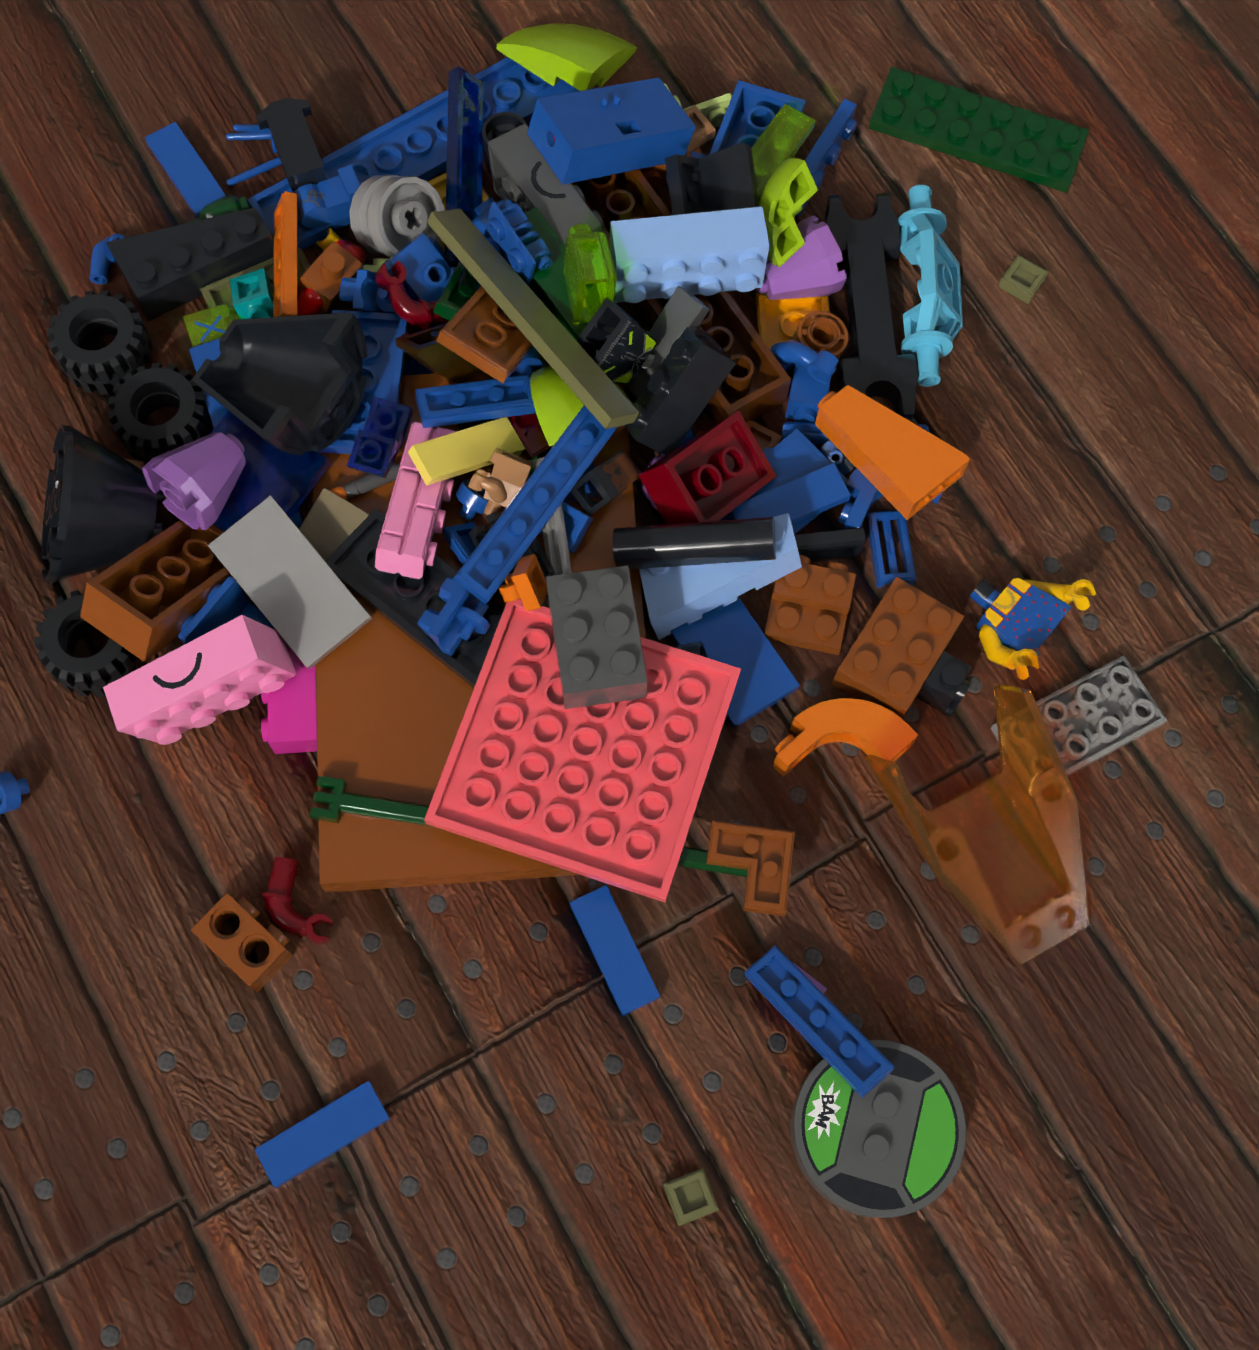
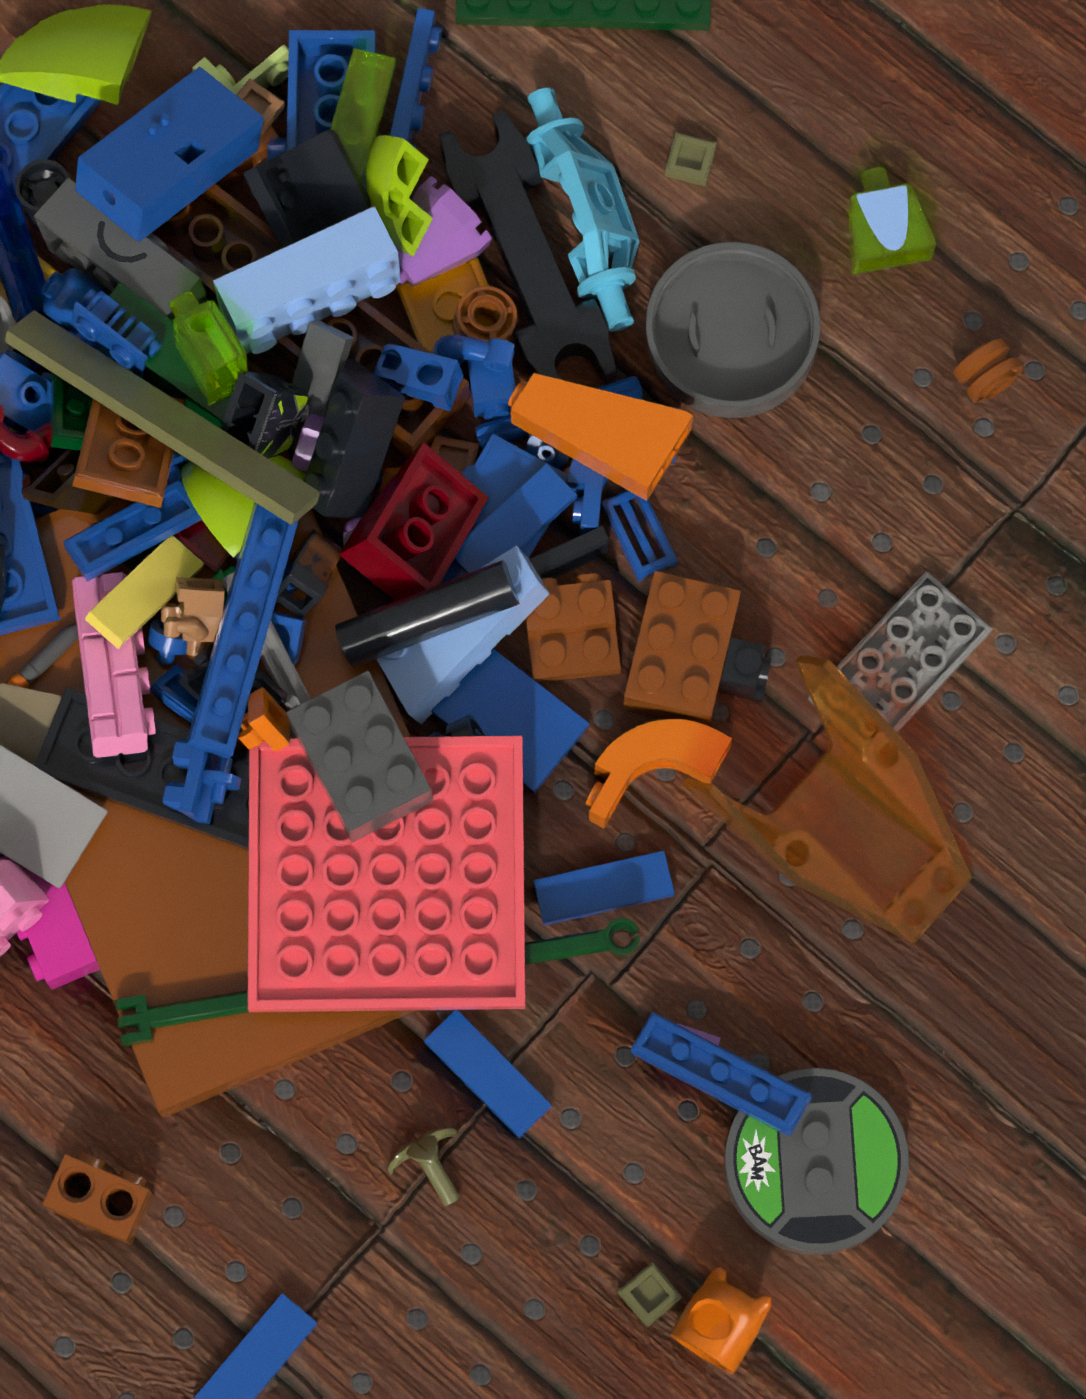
camera: 15 degrees left, 5 degrees up
(279, 903) = (120, 1145): dark red piece -> none
(381, 437) = (43, 607): clear blue slope -> none
(535, 998) = (425, 1152): none -> olive plant
(640, 381) = (307, 442): none -> medium lavender tile
(747, 1247) = (721, 1322): none -> orange piece
(756, 358) = (420, 374): none -> blue leg
(765, 856) = (608, 922): dark orange tile -> none
(808, 824) = (603, 888): none -> blue tile
(1019, 413) = (732, 329): none -> dark grey brick
(1024, 618) = (806, 568): torso -> none
(1170, 375) = (886, 225): none -> clear neon green torso
(1223, 510) = (988, 370): none -> dark orange wheel

